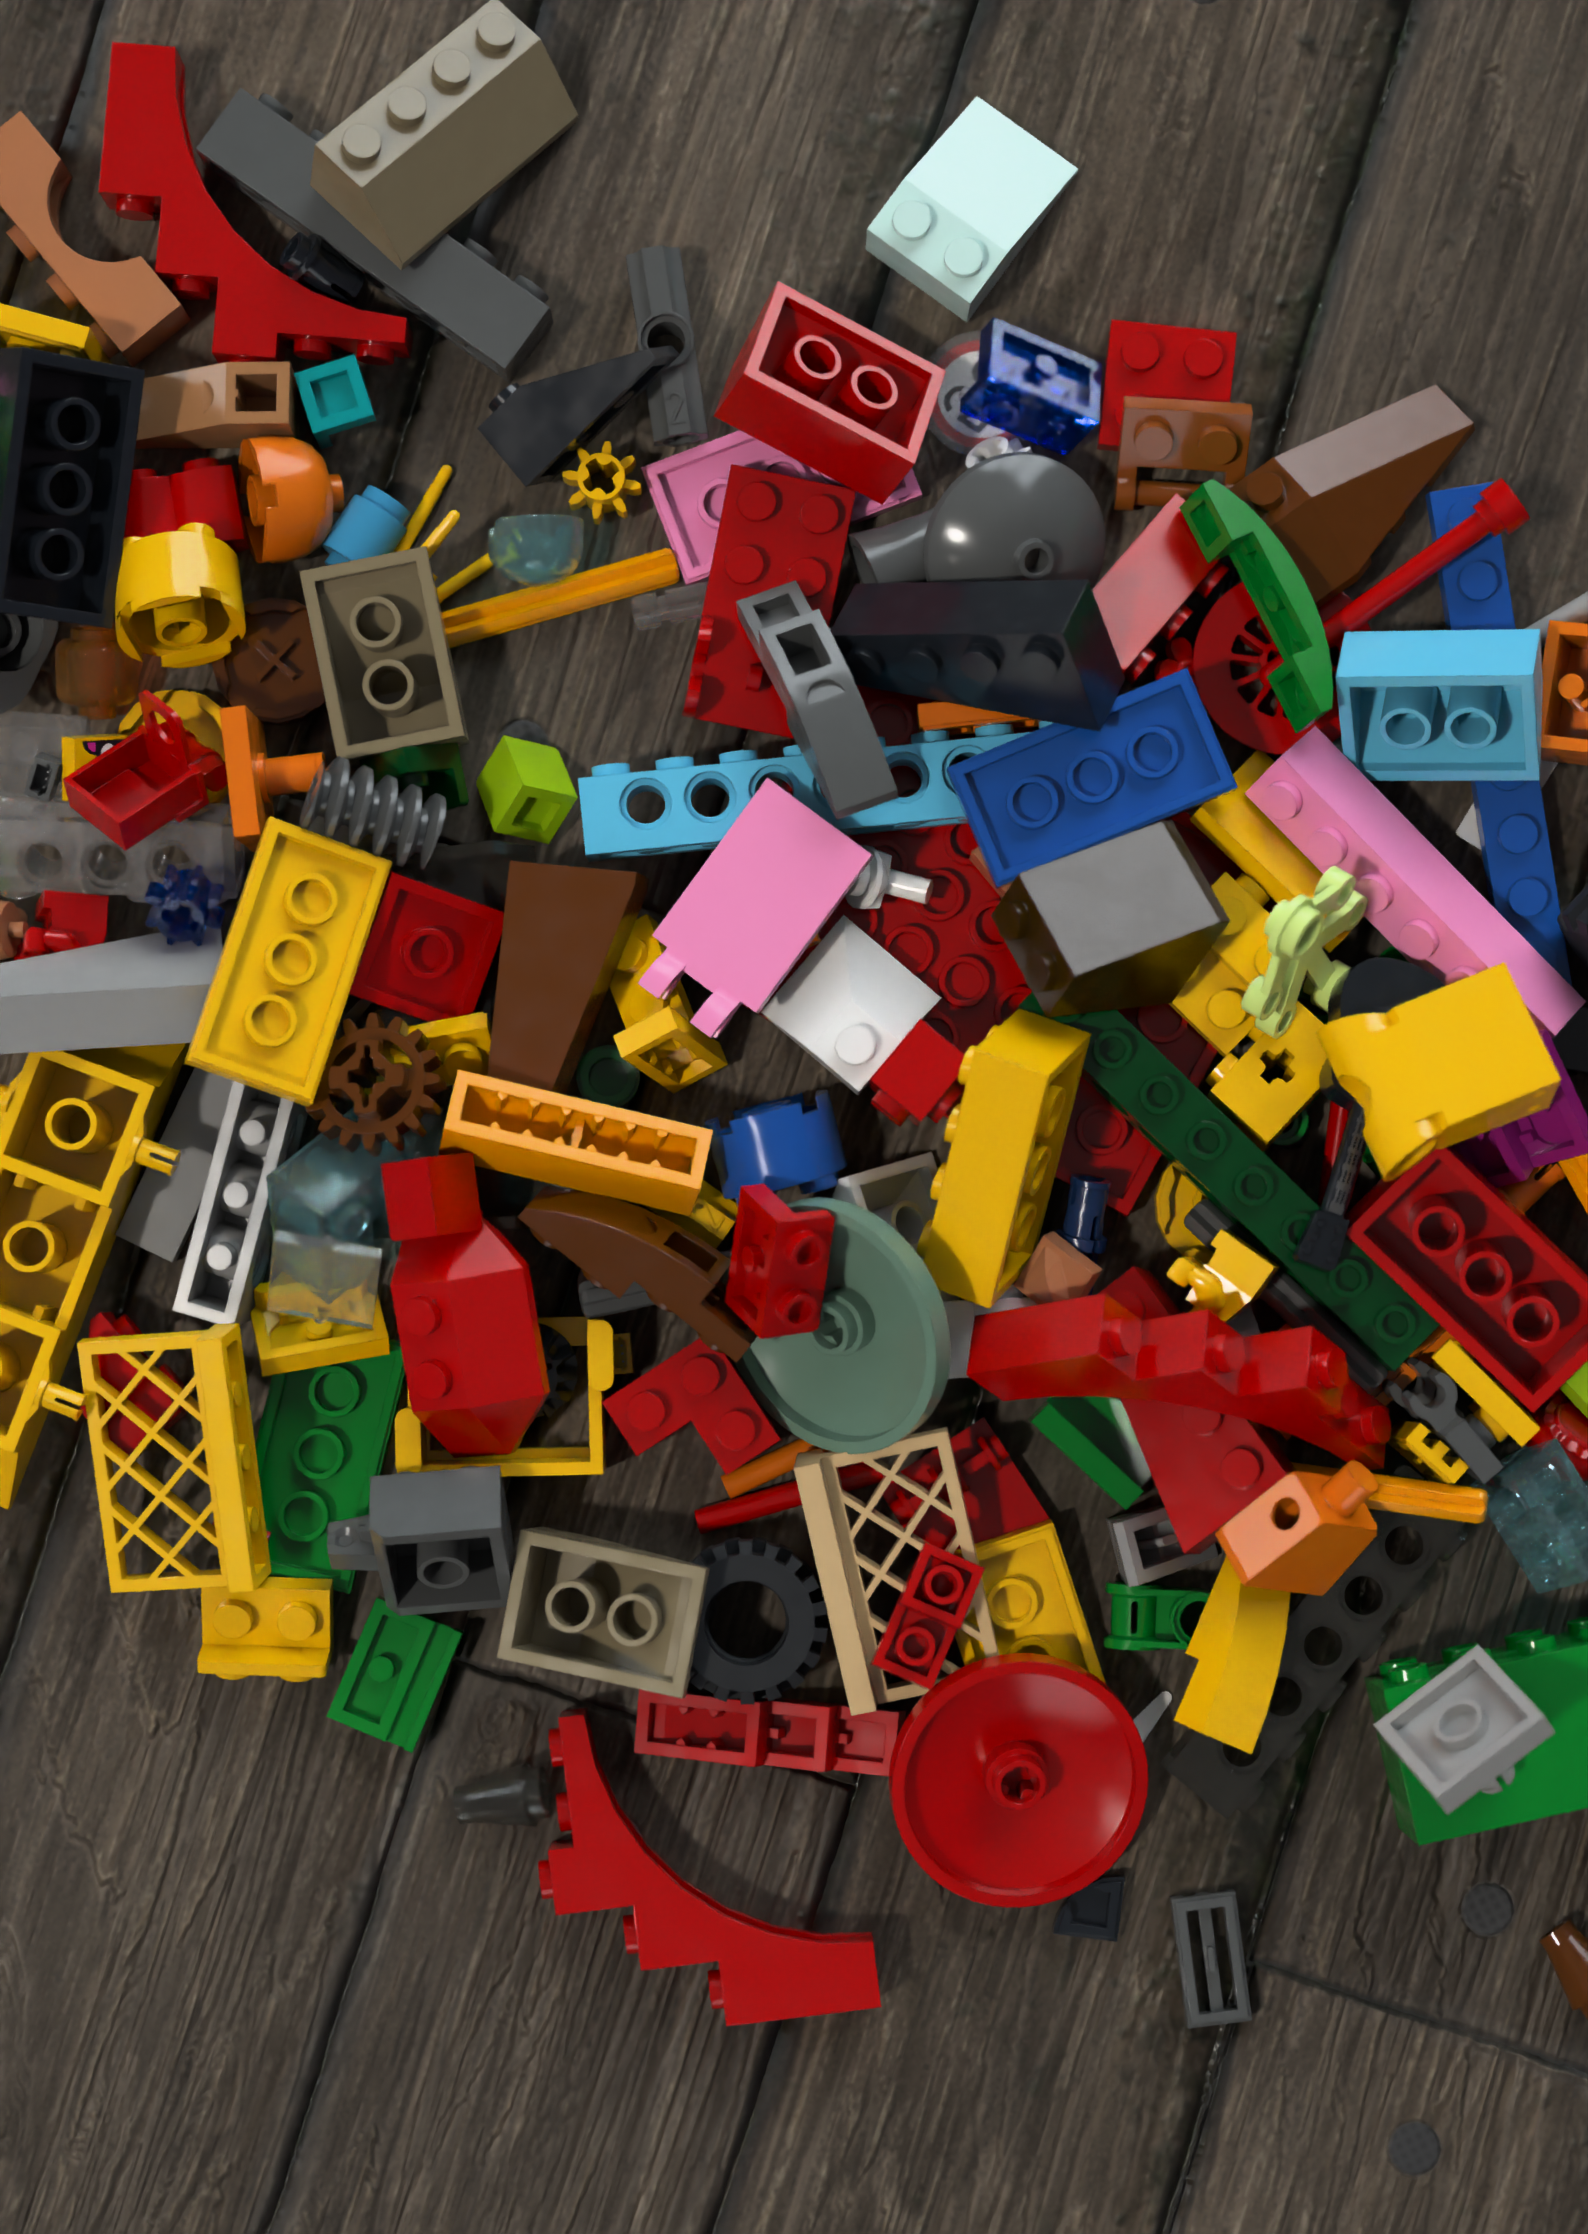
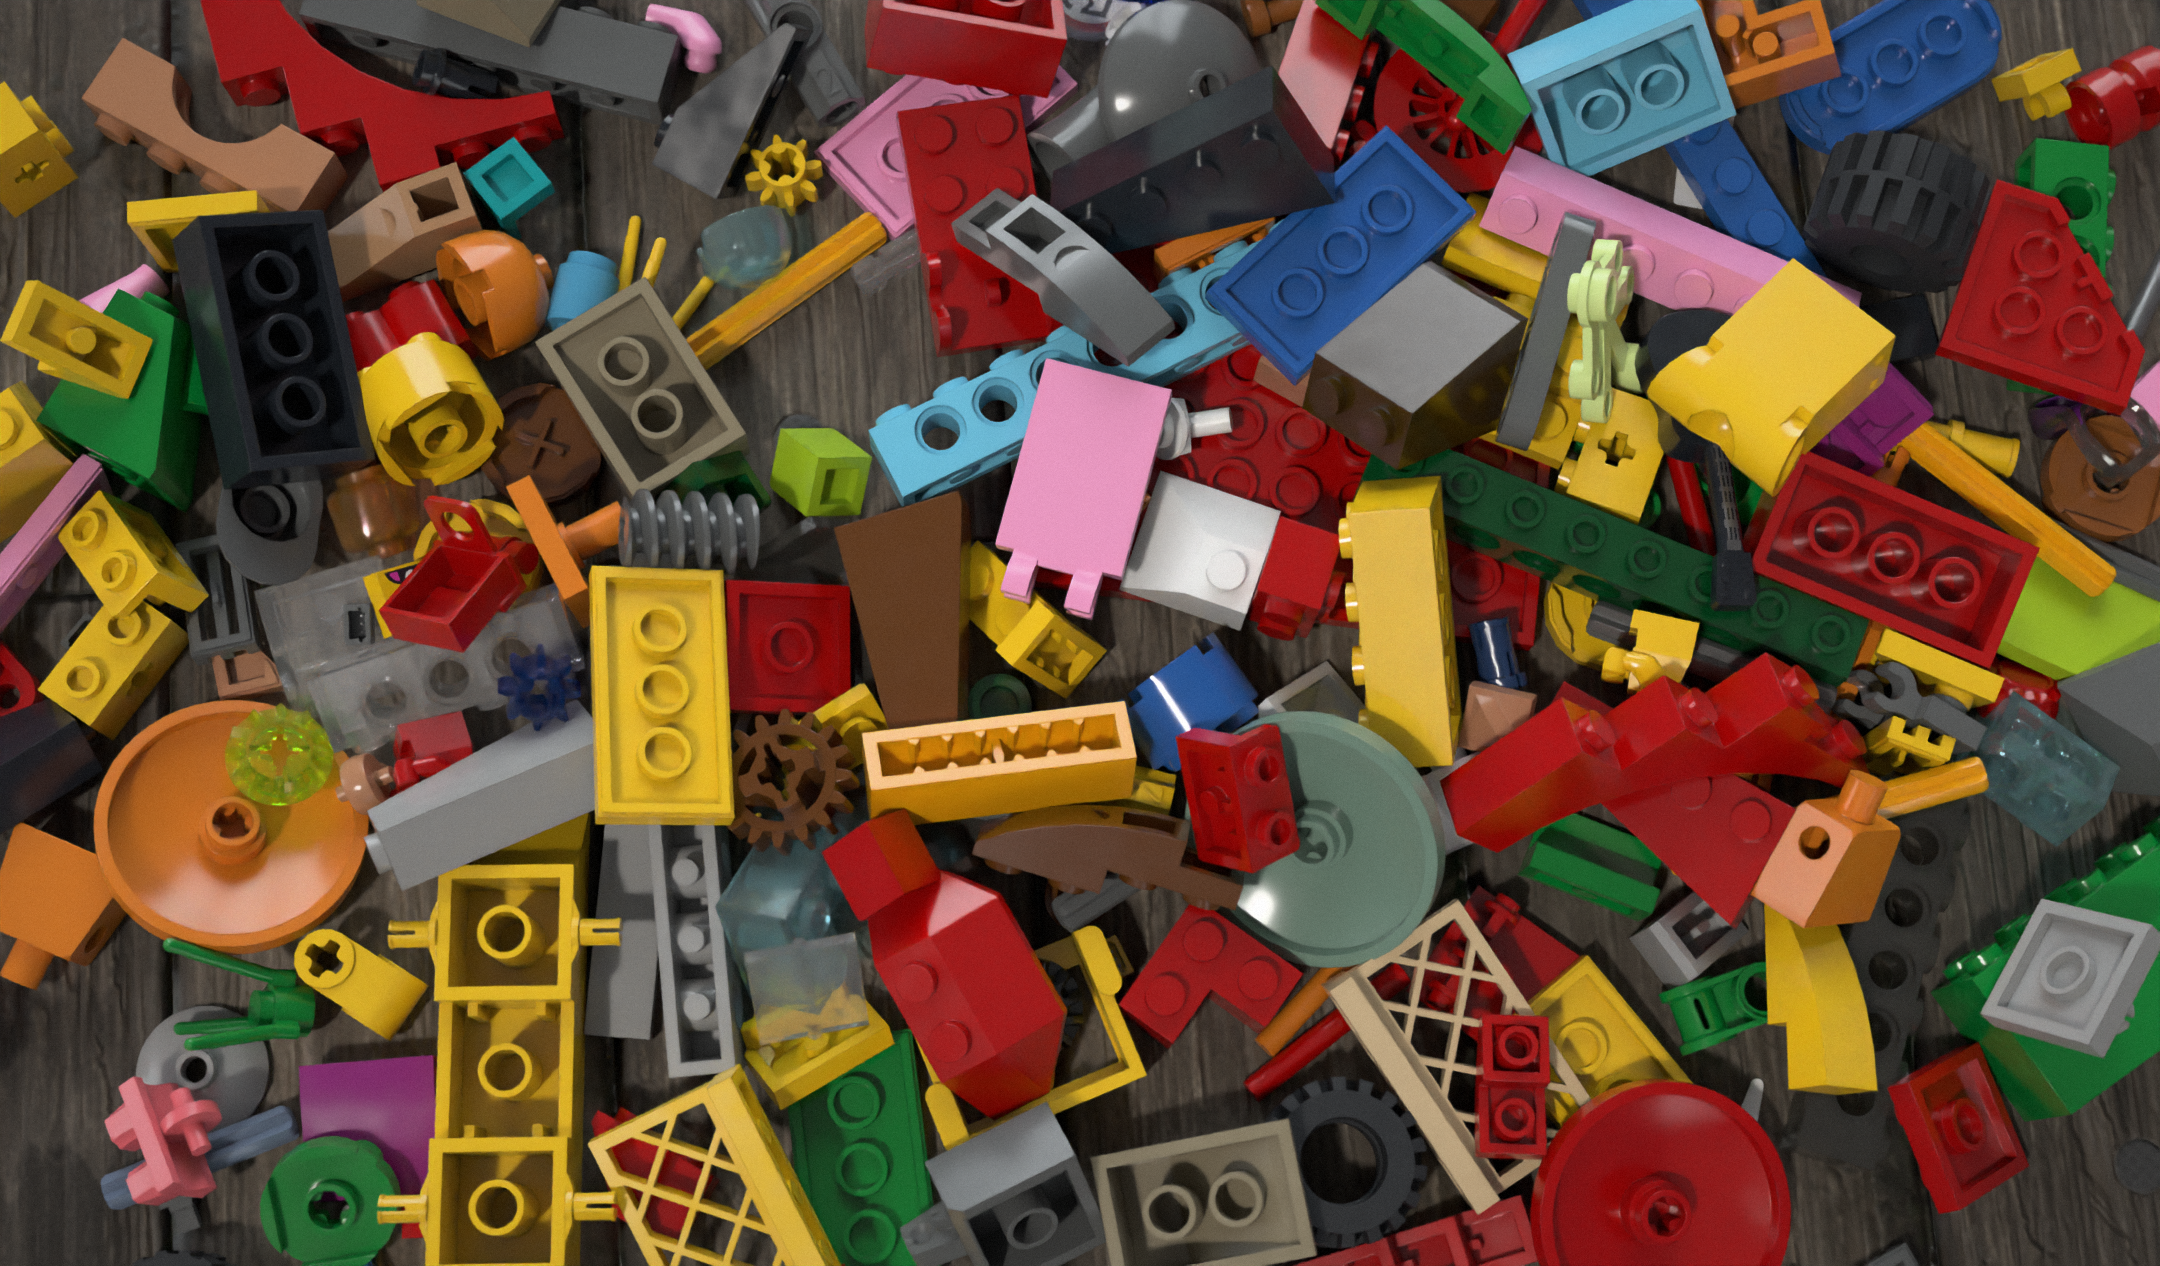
camera: 30 degrees left, 10 degrees down
(570, 302) = (693, 33): none -> bright pink arm
(1248, 933) = (1544, 333): none -> dark grey beam
(1324, 1811) = (1958, 1128): none -> red plate

